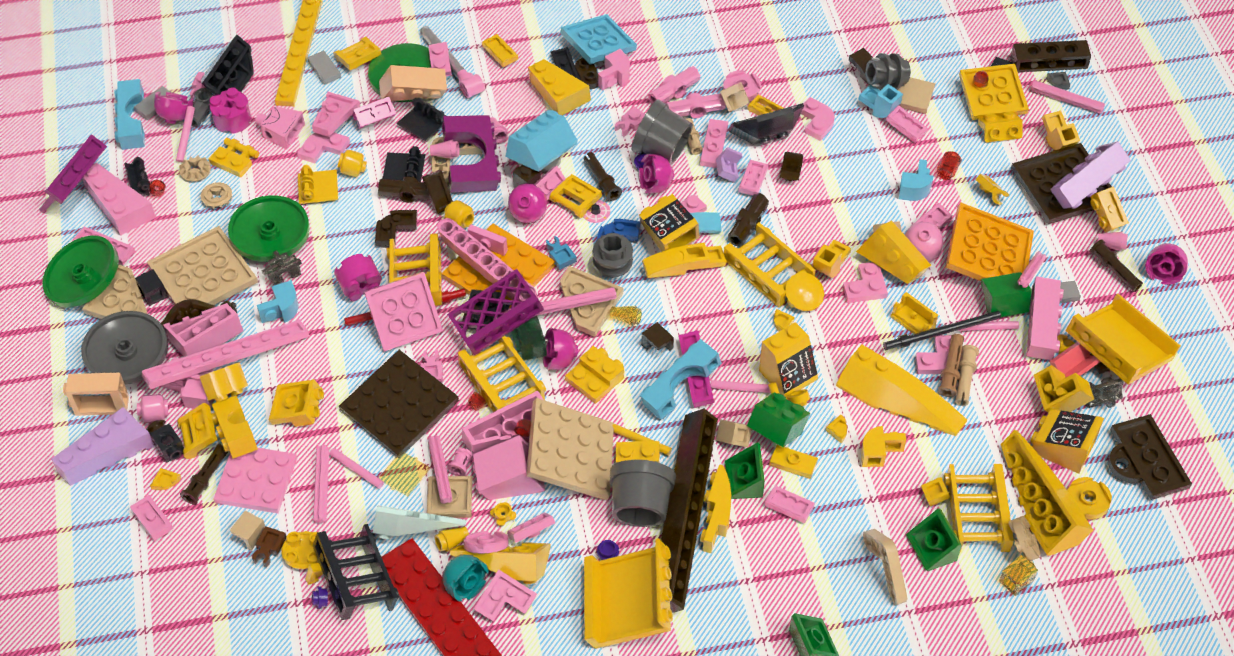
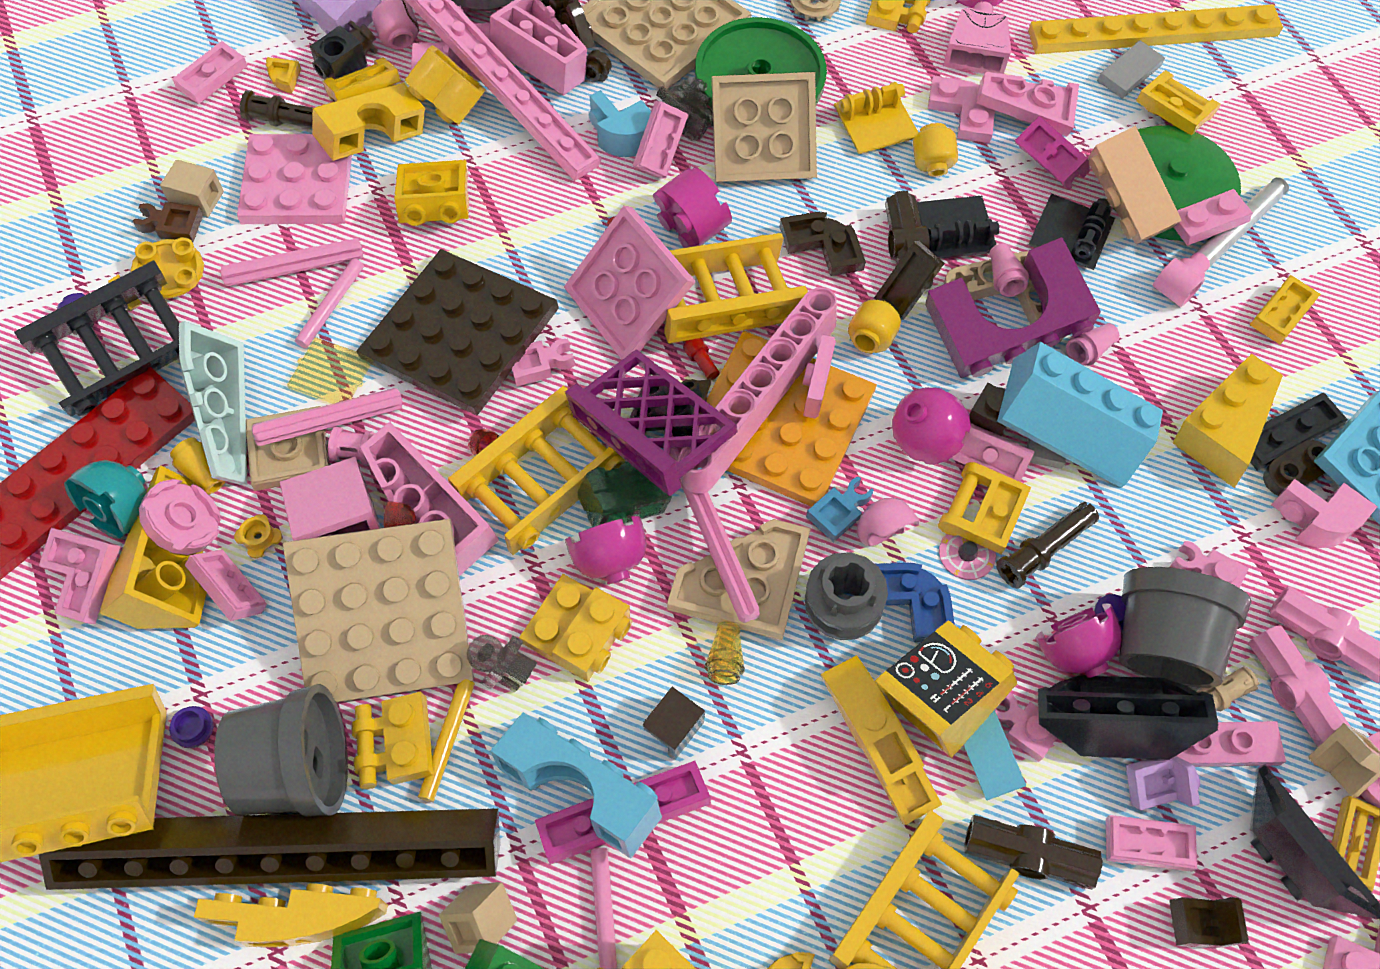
camera: 75 degrees right, 10 degrees up
(303, 283) = (660, 139): none -> bright pink plate
(315, 231) = (764, 126): none -> tan plate
(574, 232) = (883, 520): none -> bright pink hair
(611, 400) = (503, 662): none -> clear smoke hips
(697, 165) = (1126, 716): none -> black wedge

